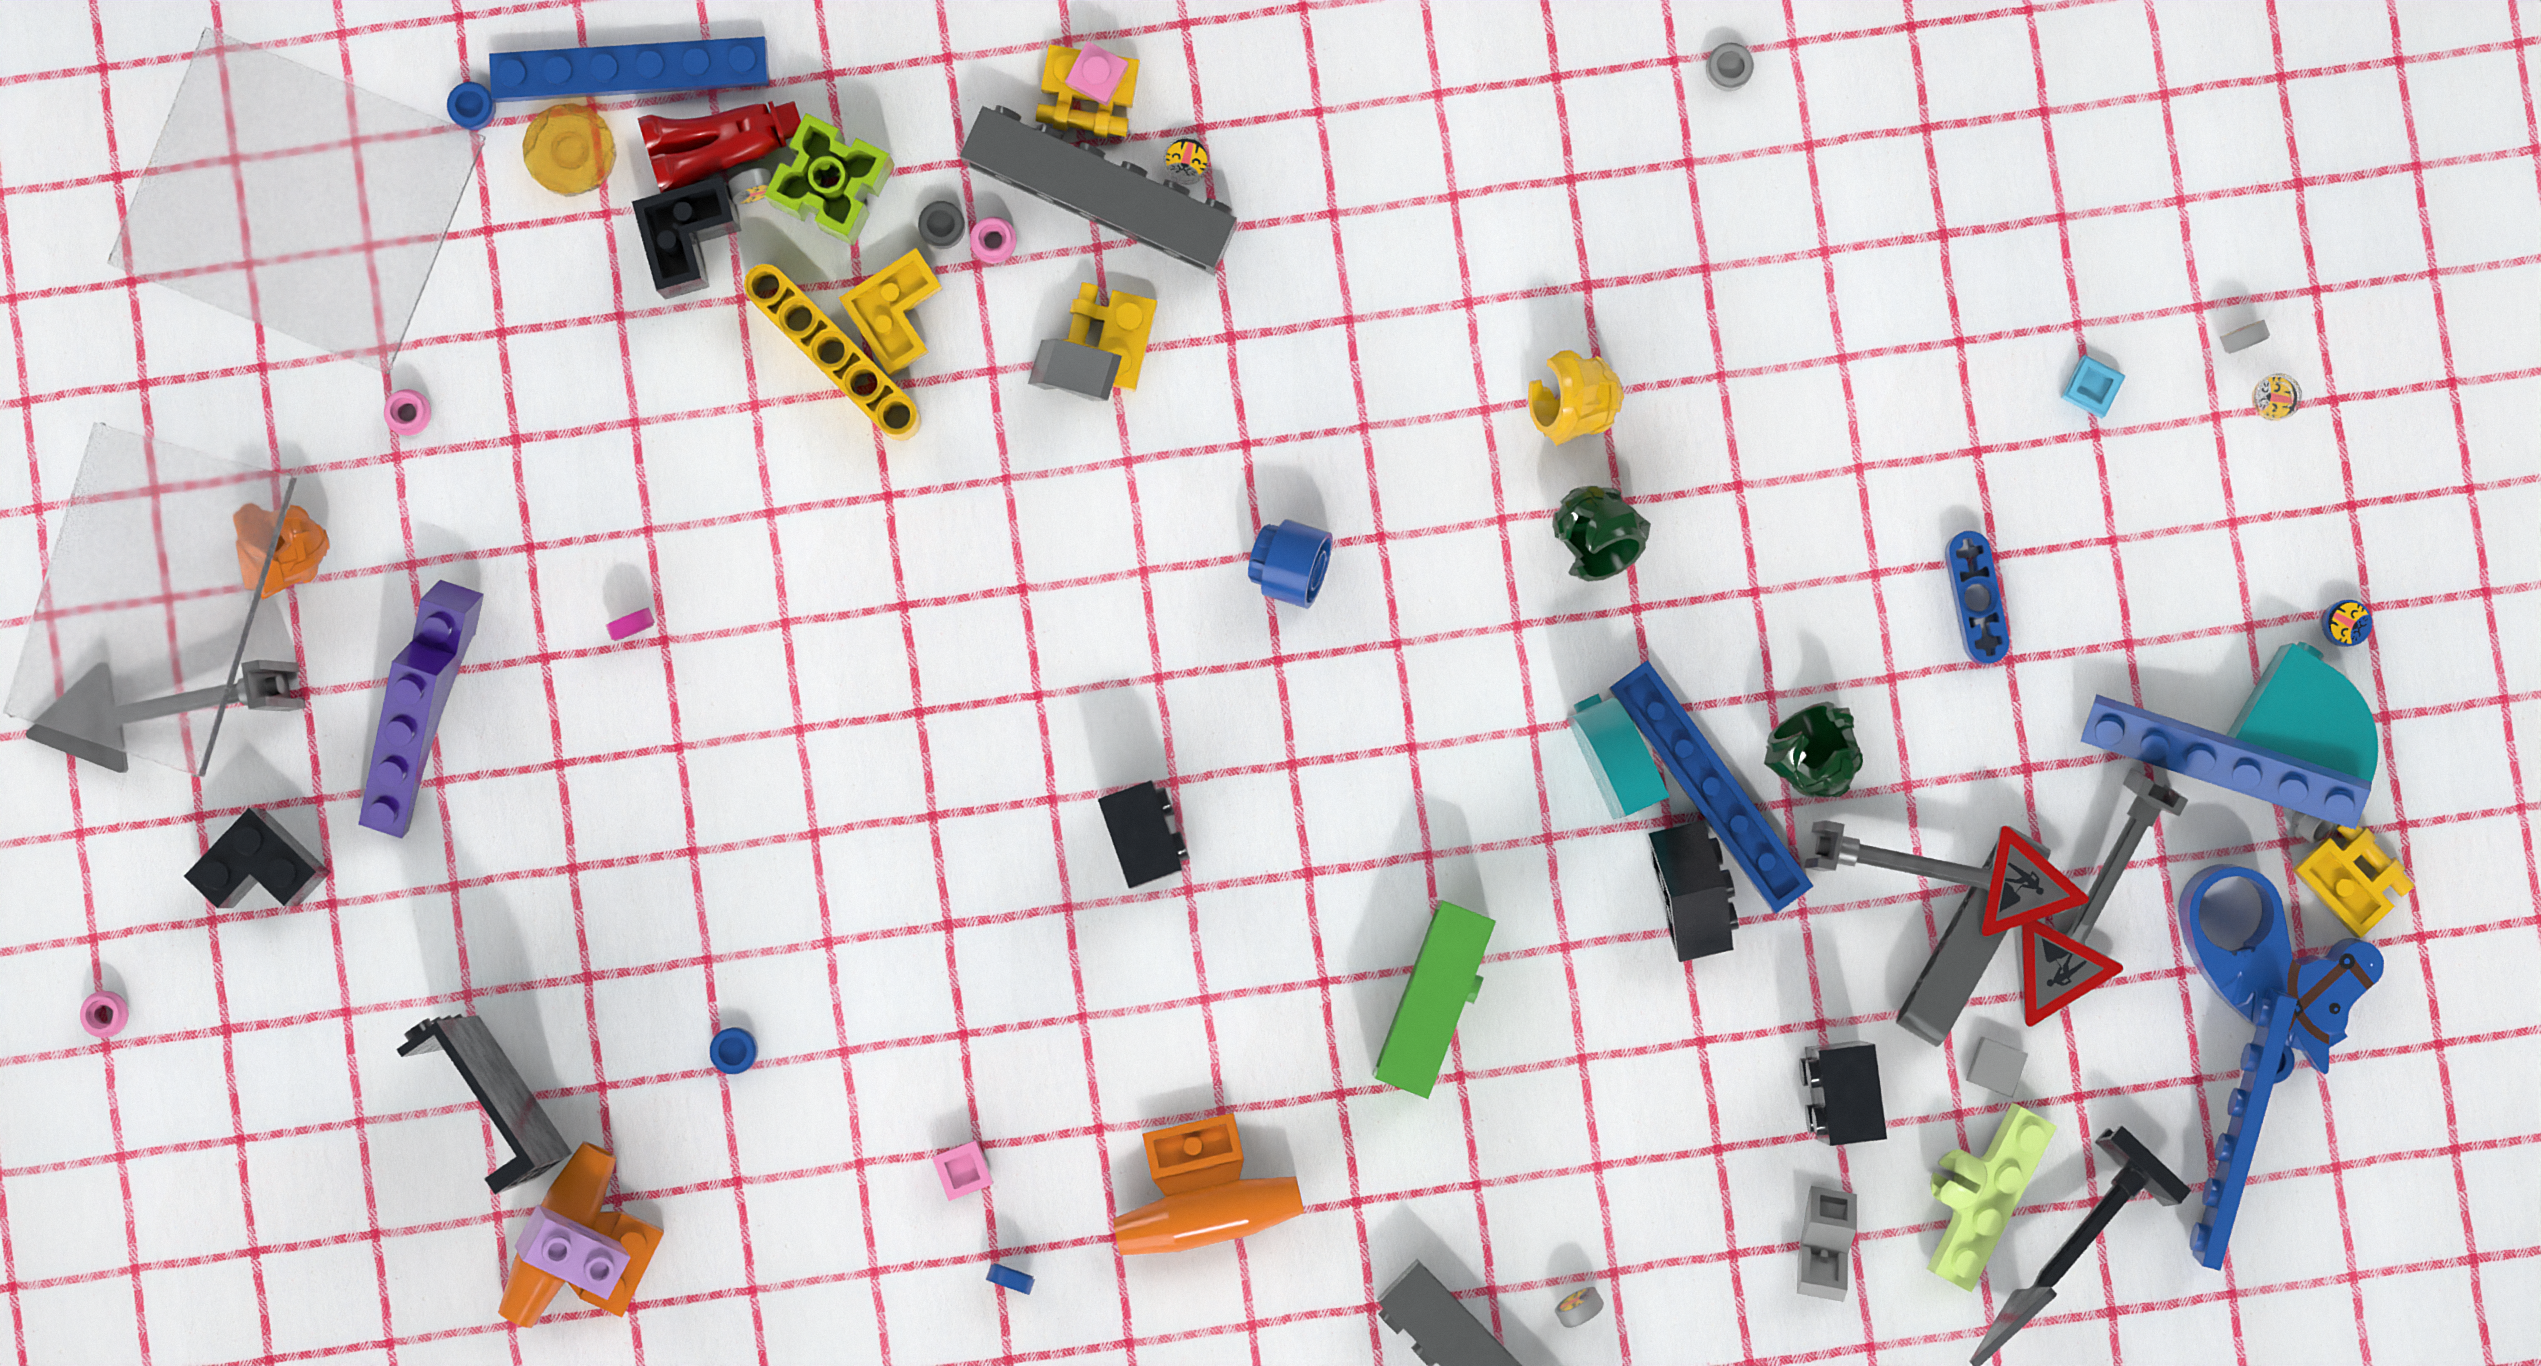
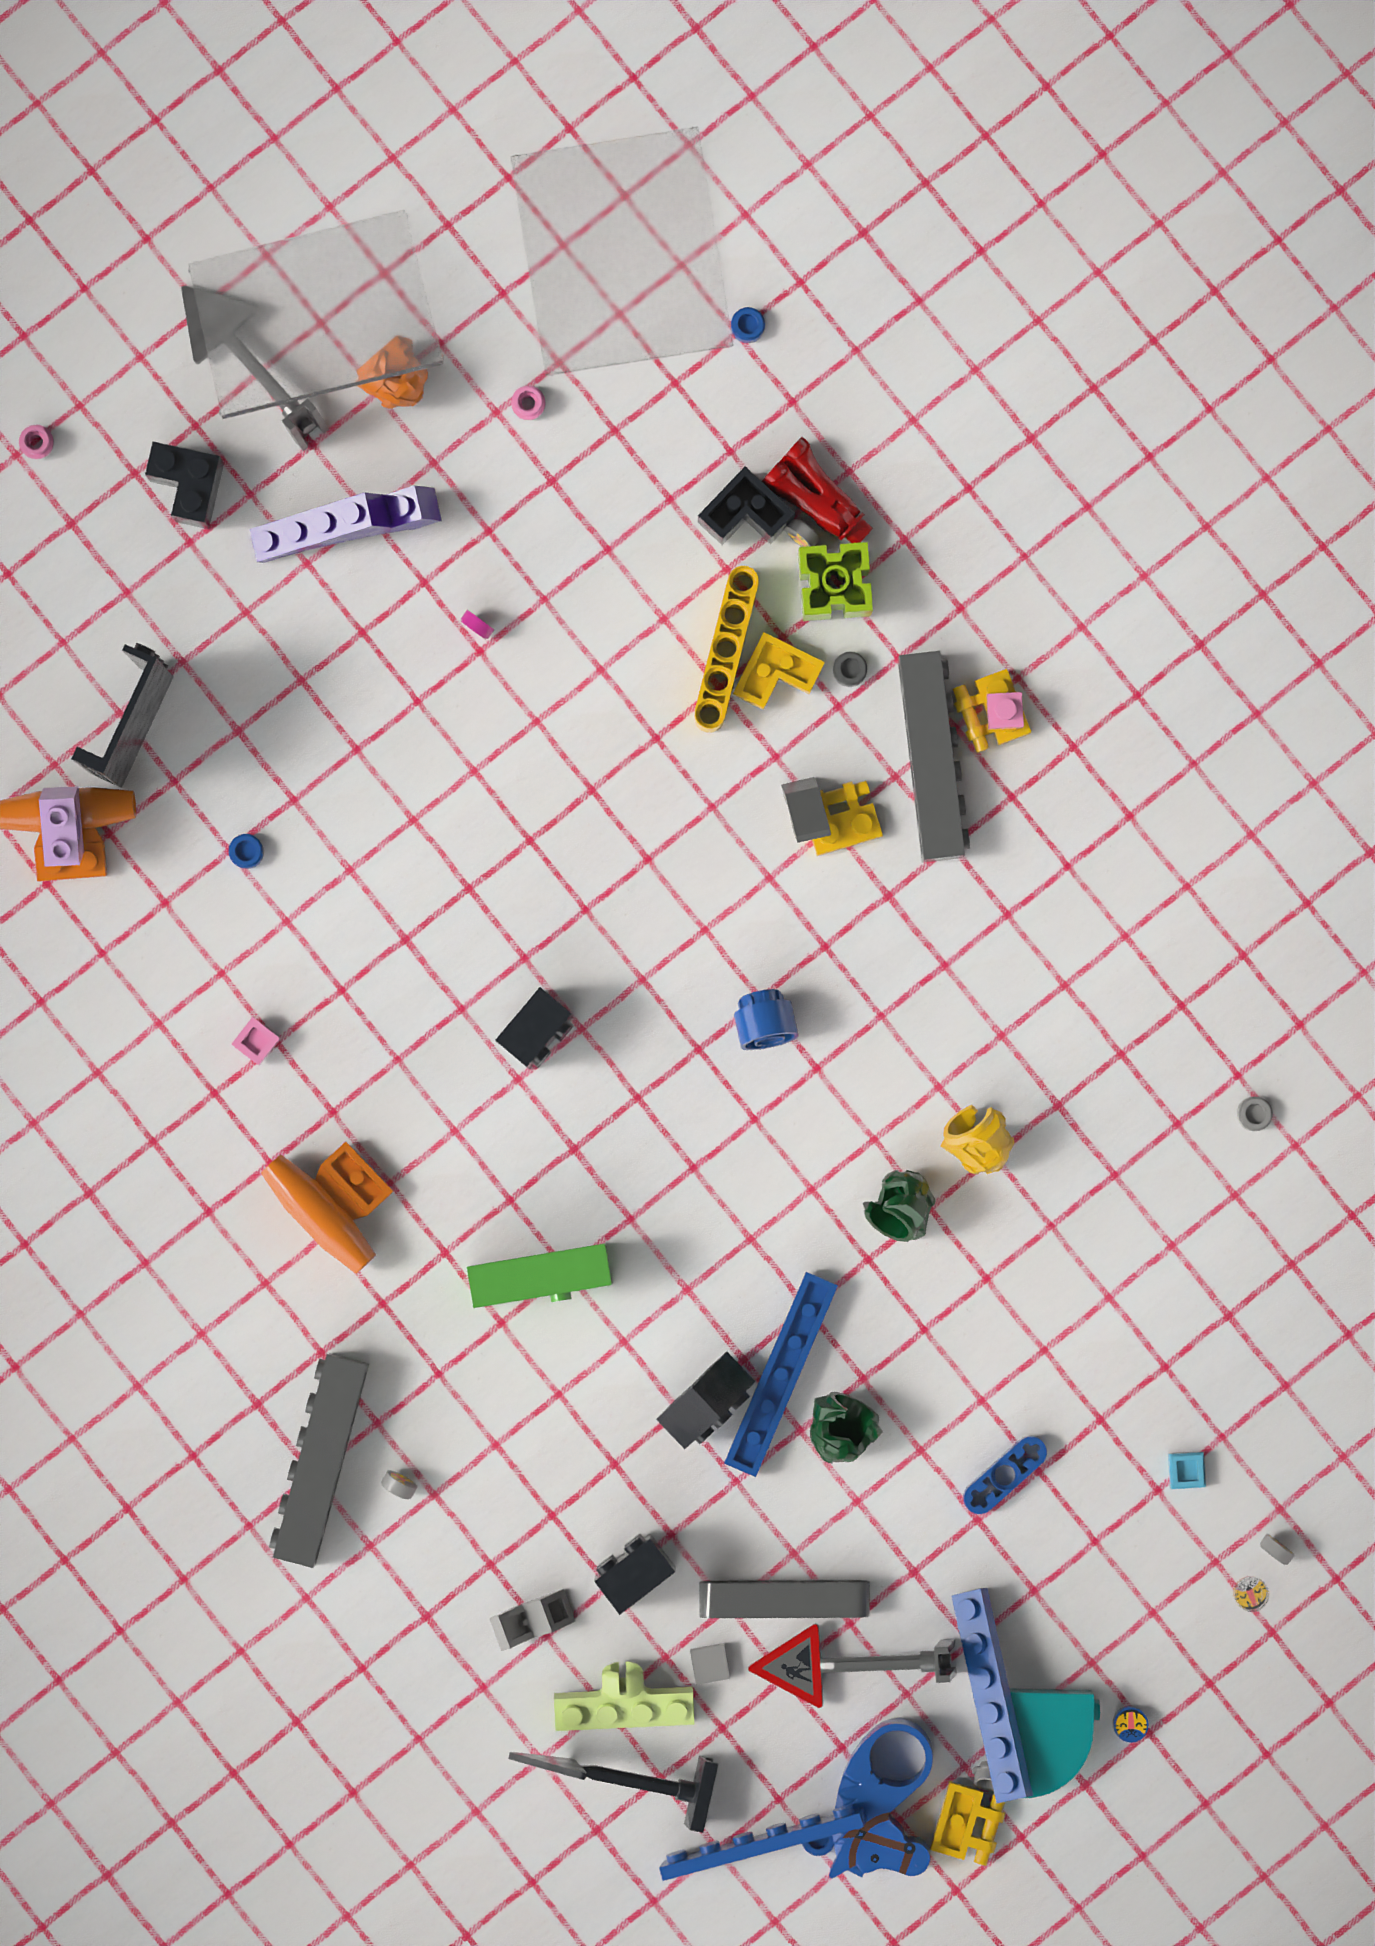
camera: 55 degrees right, 0 degrees up
(569, 149) = (756, 404): clear yellow tile -> none
(629, 69) = (831, 411): blue plate -> none
(986, 227) = (865, 698): bright pink plate -> none
(1010, 1278) = (205, 1112): blue tile -> none
(1186, 160) = (985, 800): tile -> none
(1616, 756) = (763, 1300): teal brick -> none
(2018, 885) = (834, 1607): flat silver piece -> none

